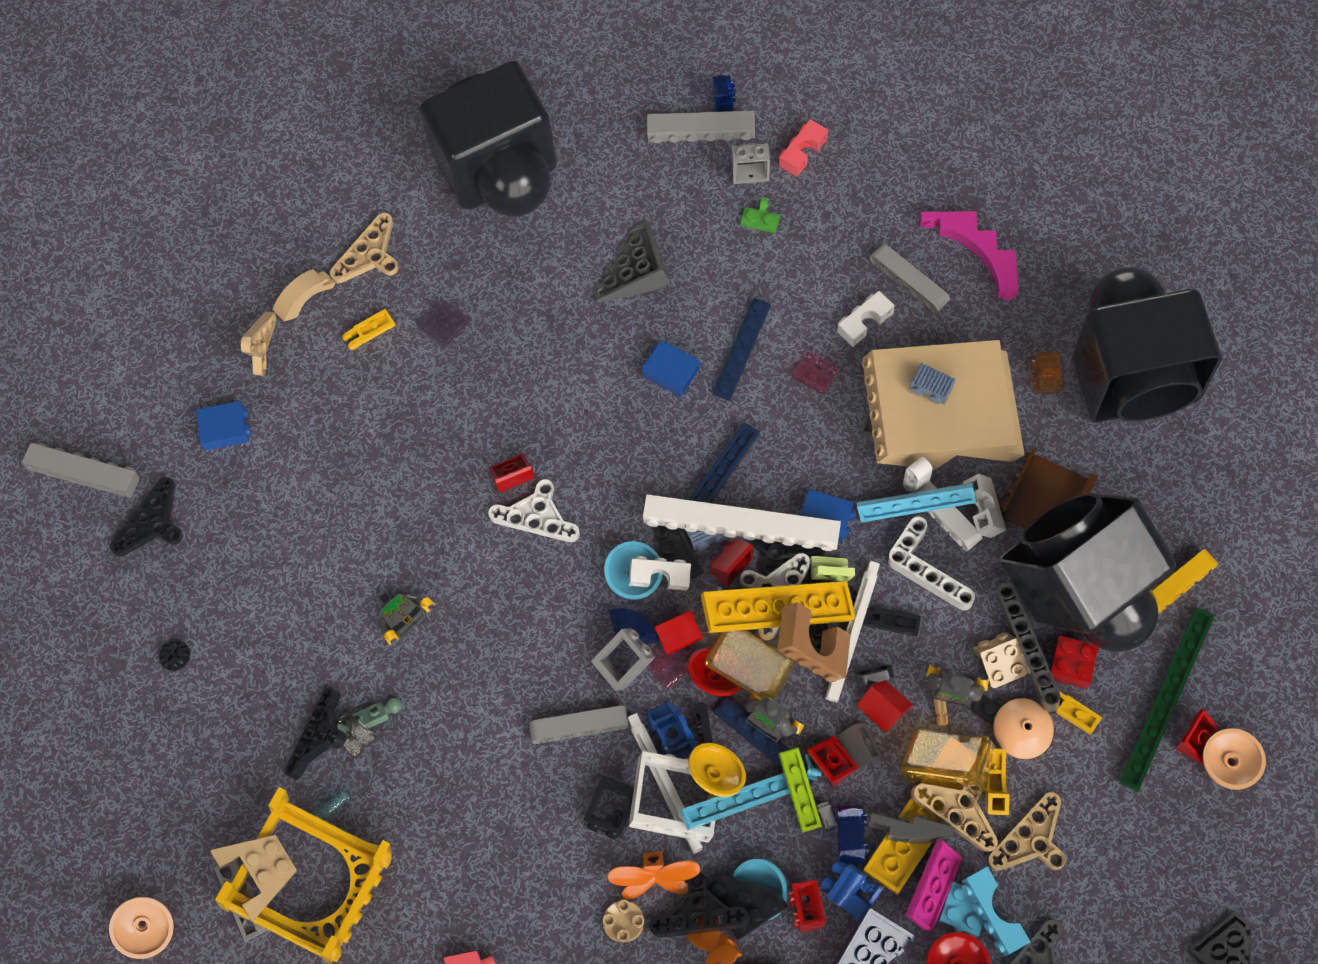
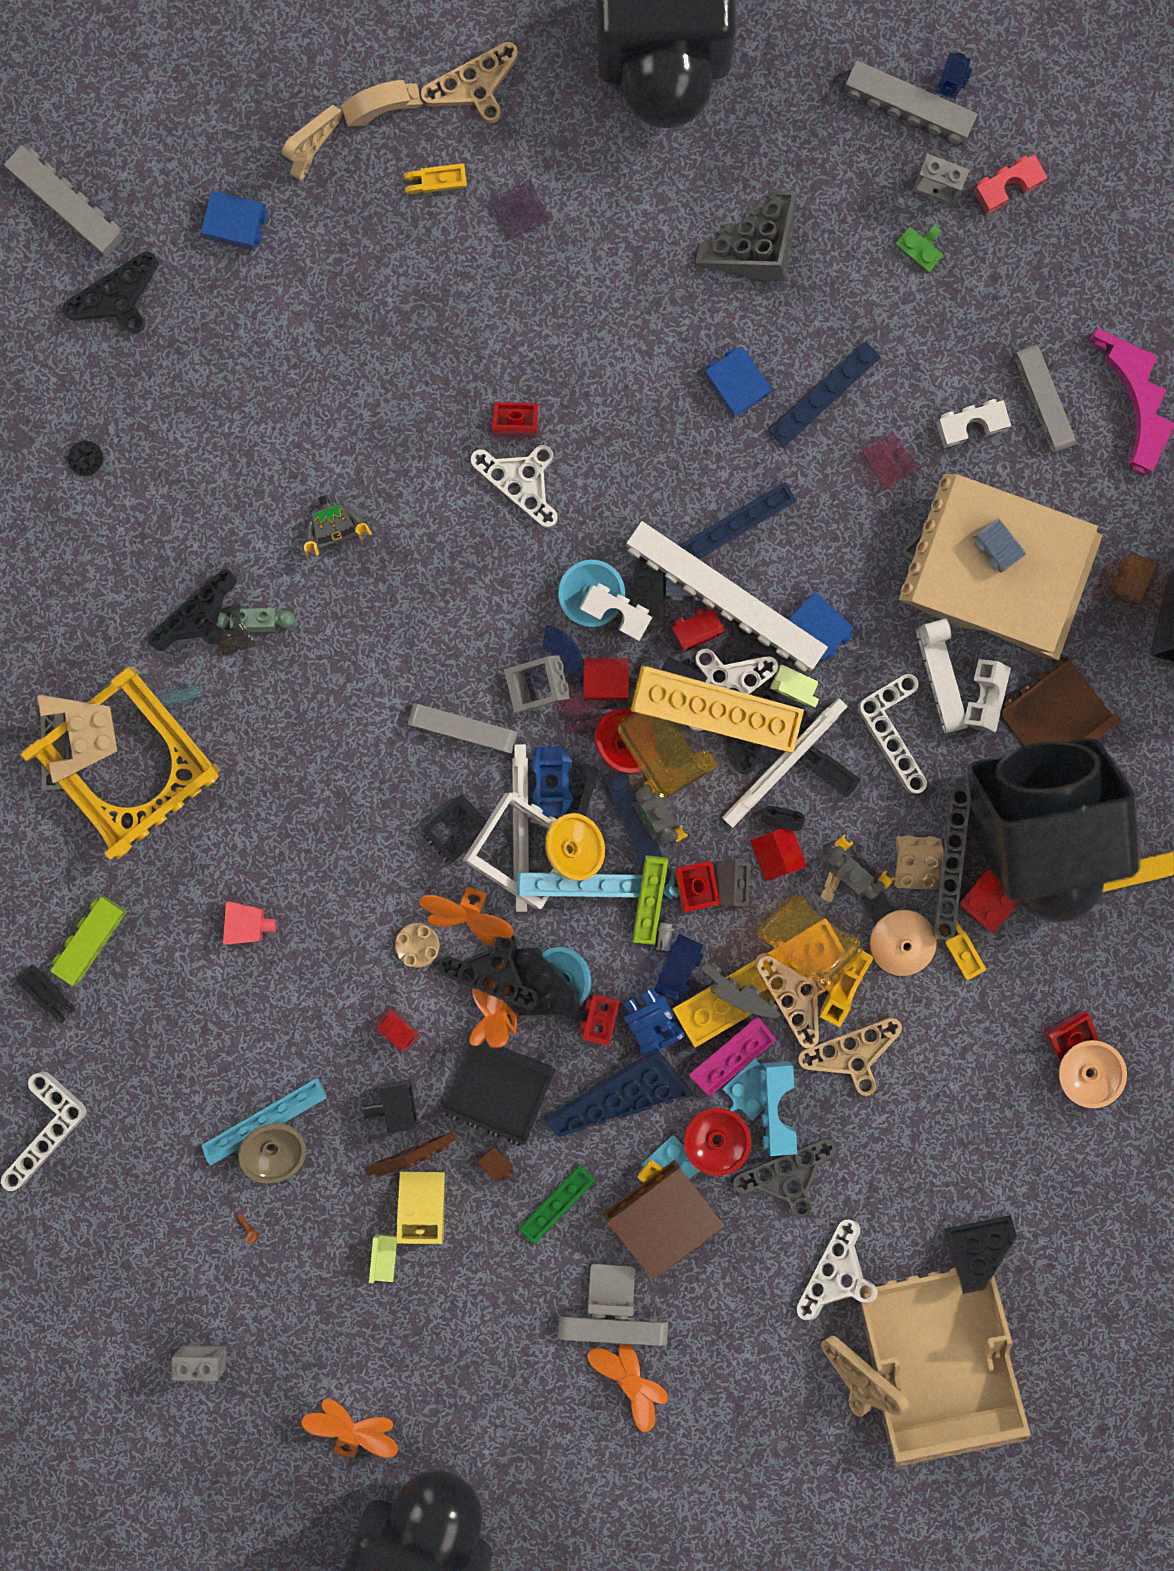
camera: 20 degrees right, 20 degrees up
(796, 644) = (715, 759): medium nougat arch -> none
(916, 502) = (918, 660): medium azure plate -> none
(1166, 699) = (1062, 981): dark green plate -> none

